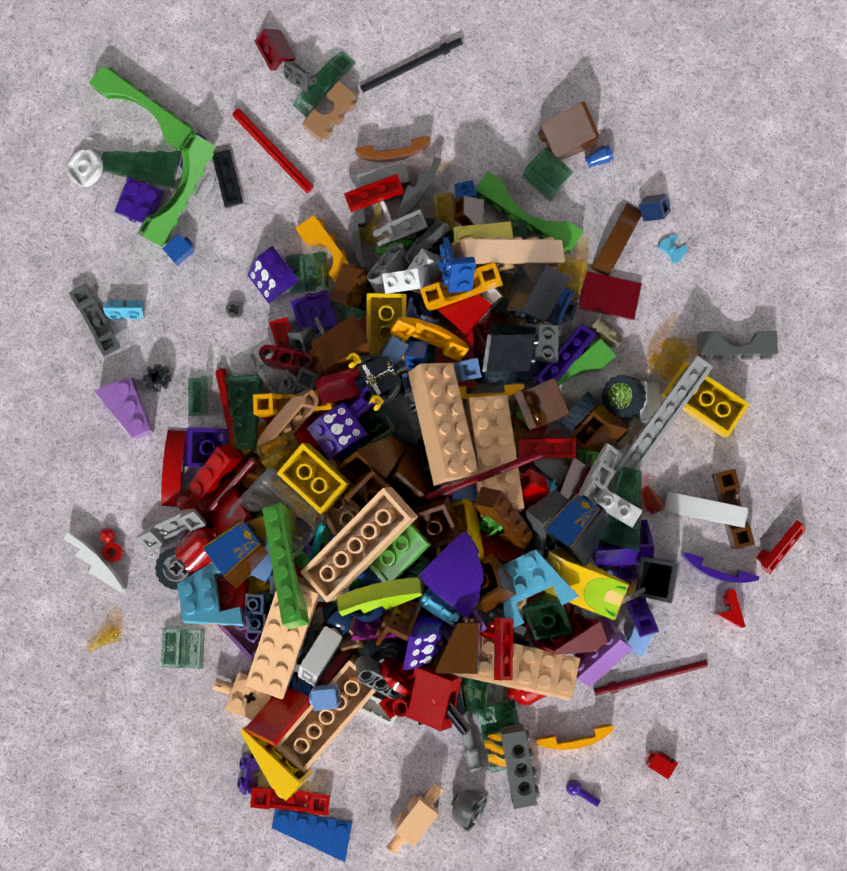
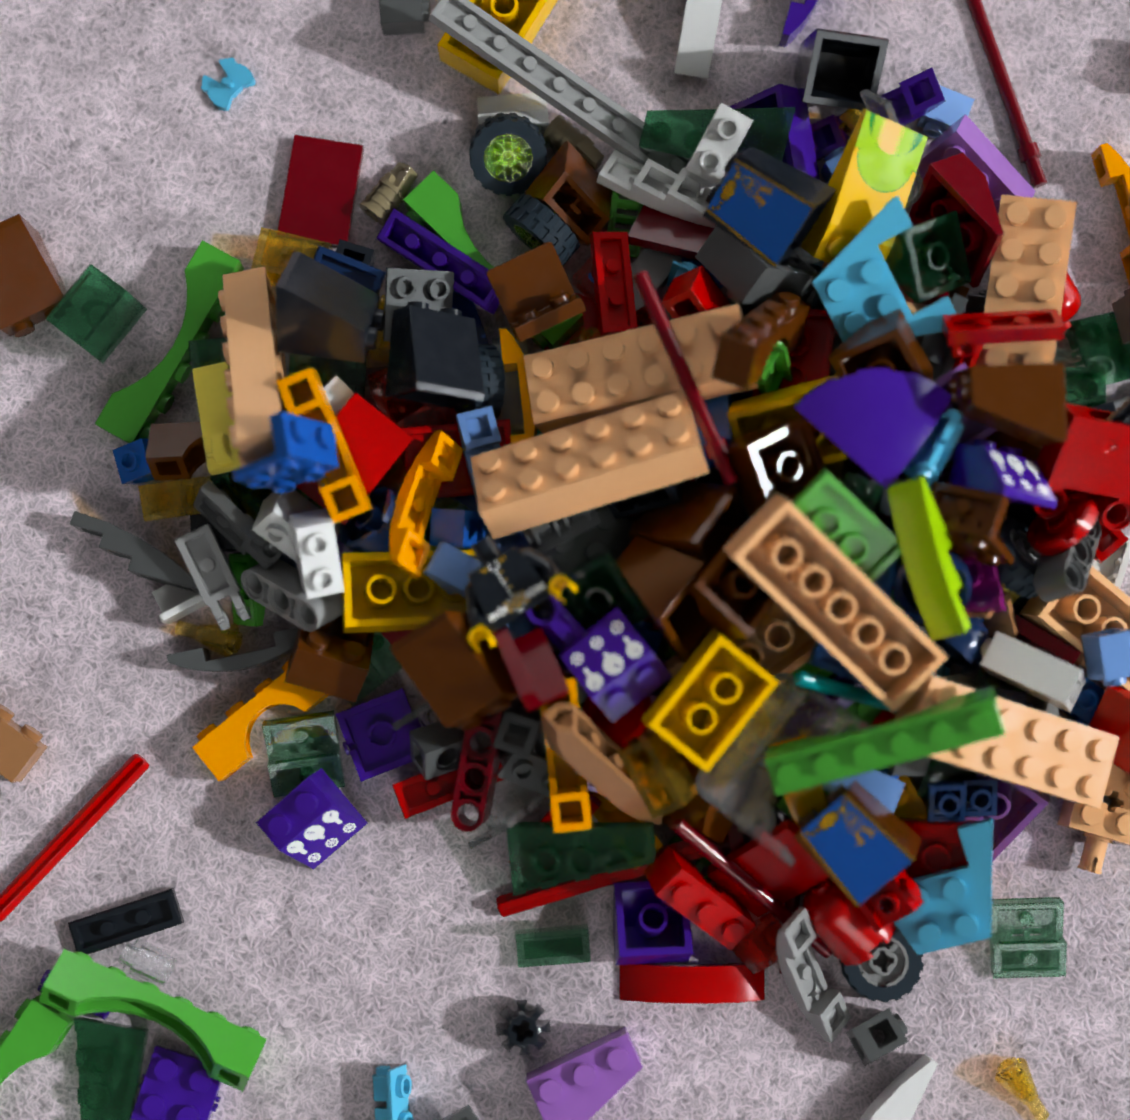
camera: 100 degrees left, 0 degrees up
(108, 535) = (829, 1099): red plate -> none
(134, 556) = (864, 1044): none -> dark grey brick
(179, 249) = (270, 1006): blue brick -> none
(205, 569) = (892, 902): none -> red brick
(237, 304) = (371, 884): flat silver bush -> none
(369, 154) = (67, 650): dark orange slope -> none
(373, 193) = (145, 633): red hinge -> none
(375, 175) = (116, 623): light grey beam -> none
(600, 156) = (58, 220): blue cone -> none
(617, 240) = (215, 181): reddish brown slope -> none
(651, 501) = (695, 96): clear red cone -> none
(654, 207) = (151, 117): dark blue panel -> none
(678, 353) = (424, 63): clear yellow brick -> none

